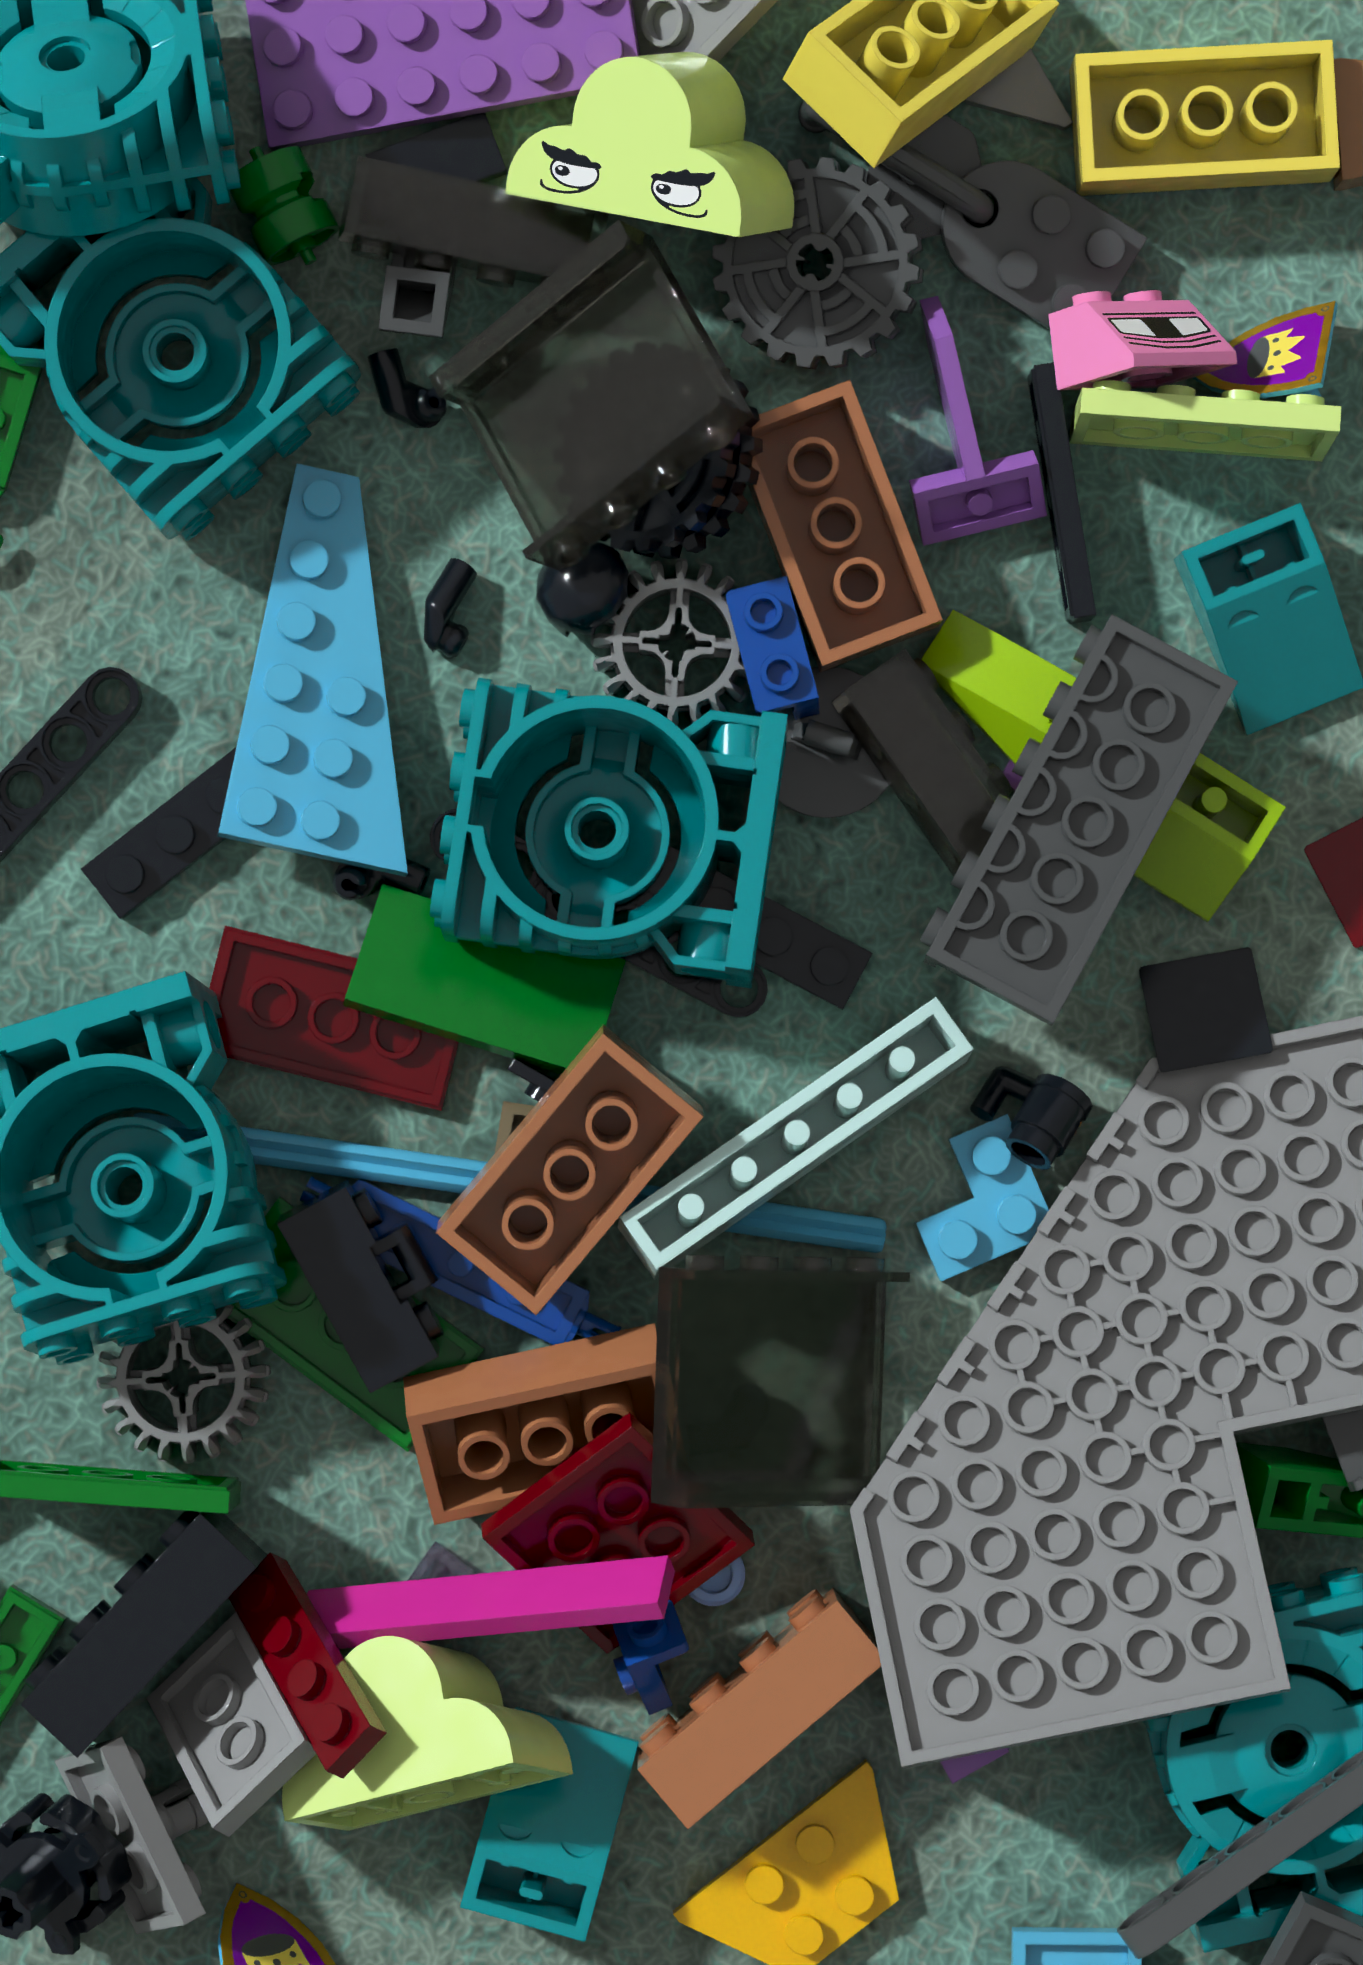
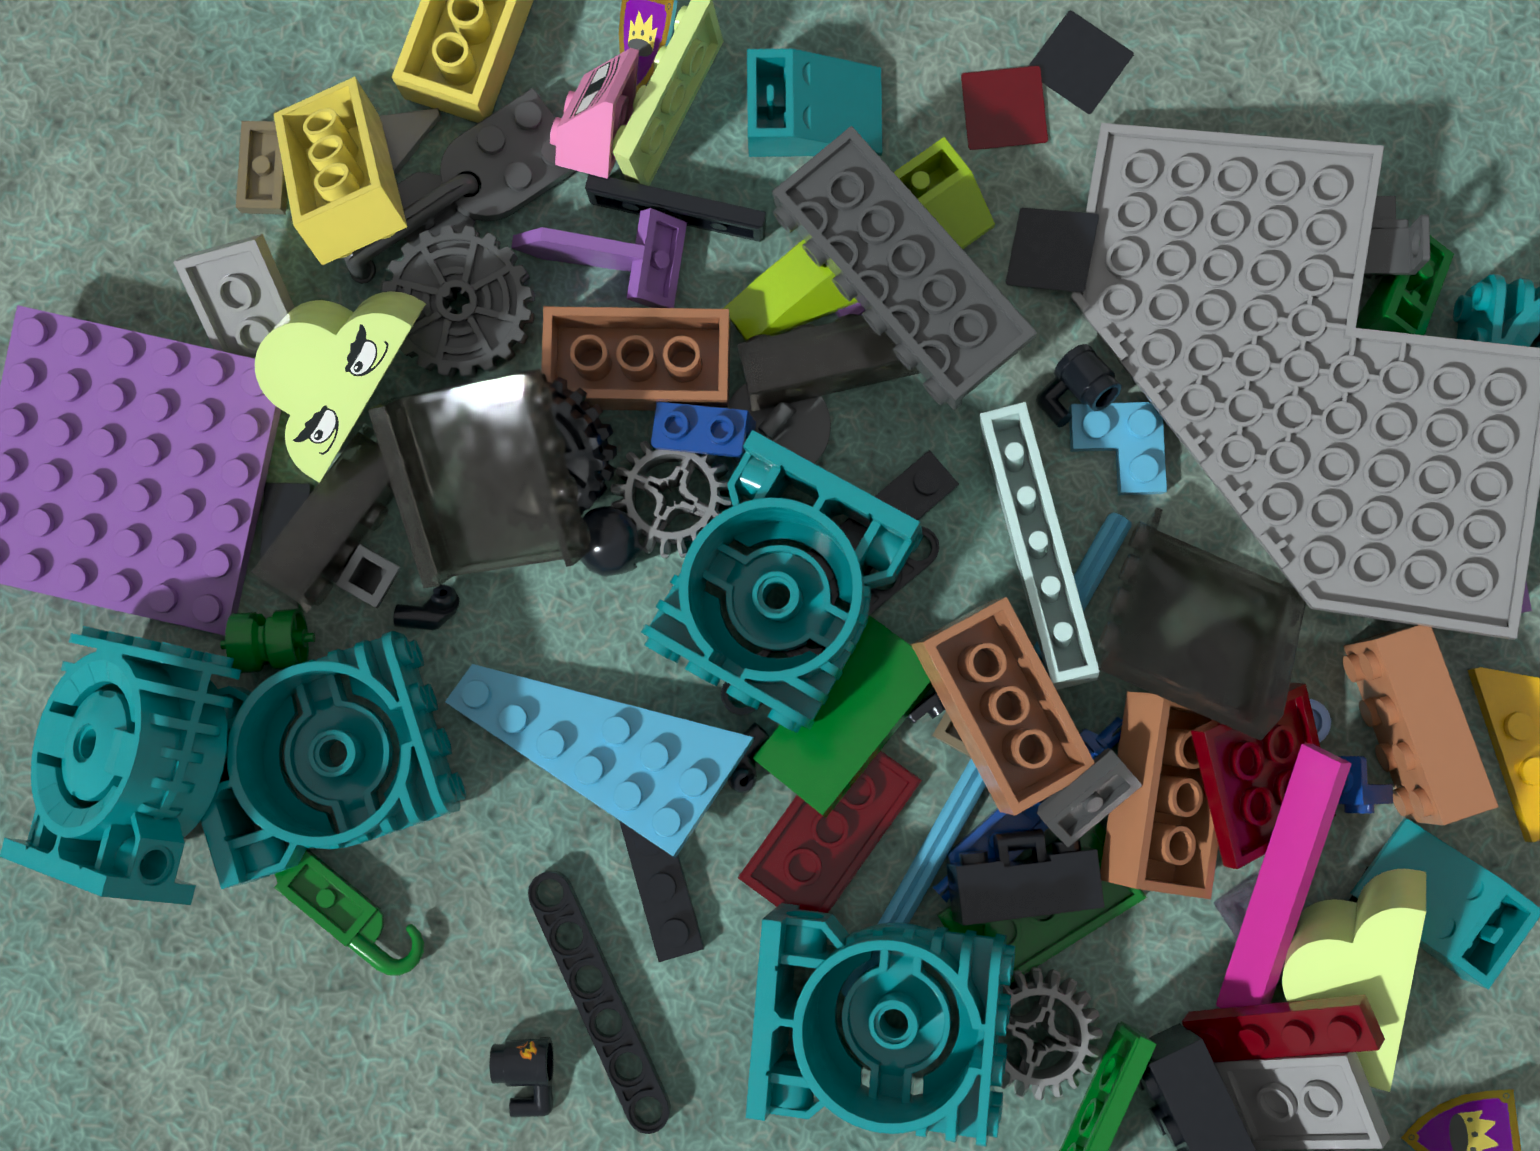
camera: 65 degrees left, 5 degrees down
(440, 608) = (581, 643): black arm -> none
(497, 1320) = (1088, 798): none -> dark grey panel

